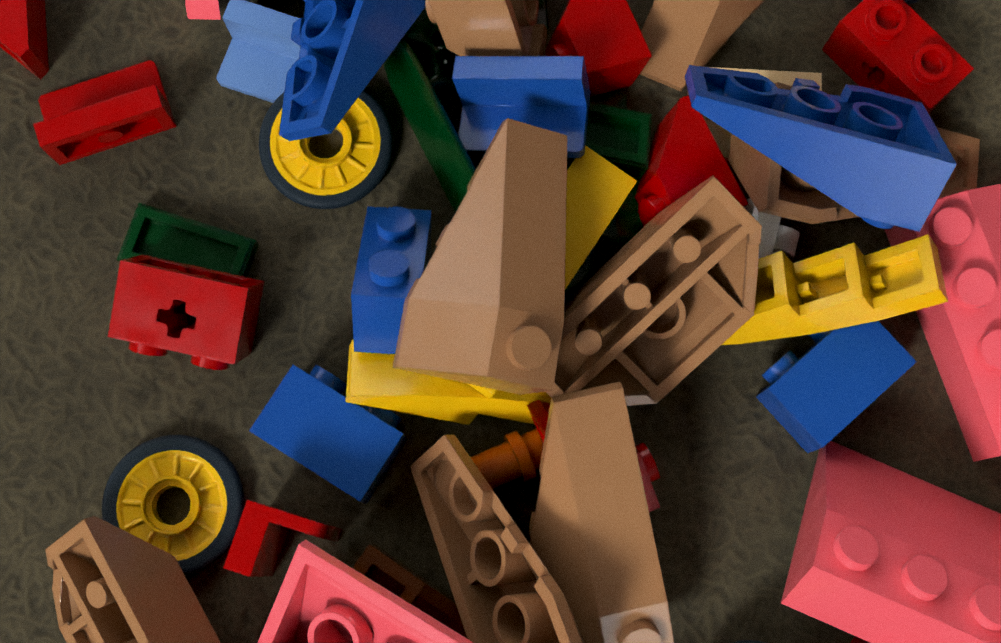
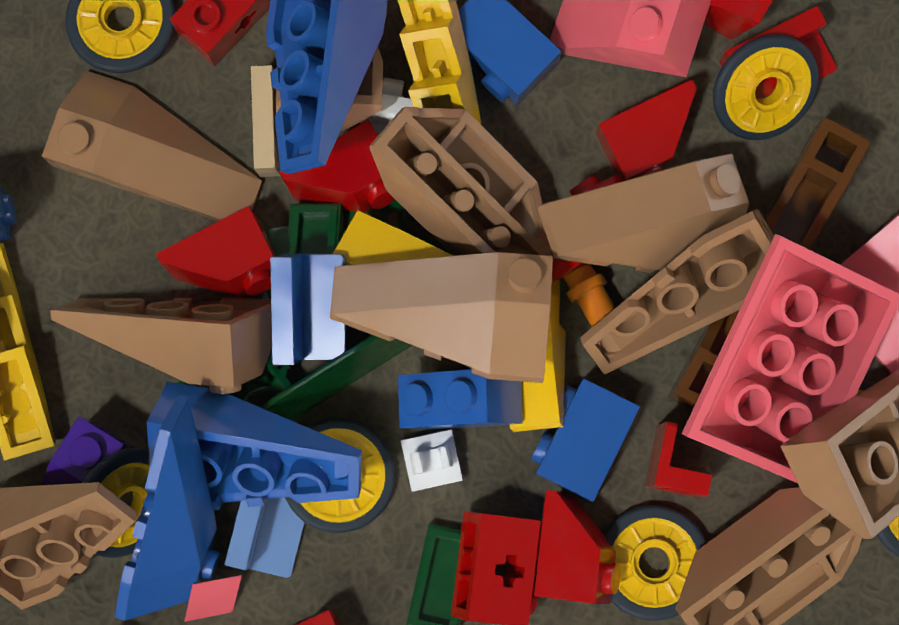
camera: 90 degrees left, 5 degrees up
(189, 404) = (574, 554): none -> red slope
(328, 250) = (431, 460): none -> white tile
(709, 552) = (647, 134): none -> red slope

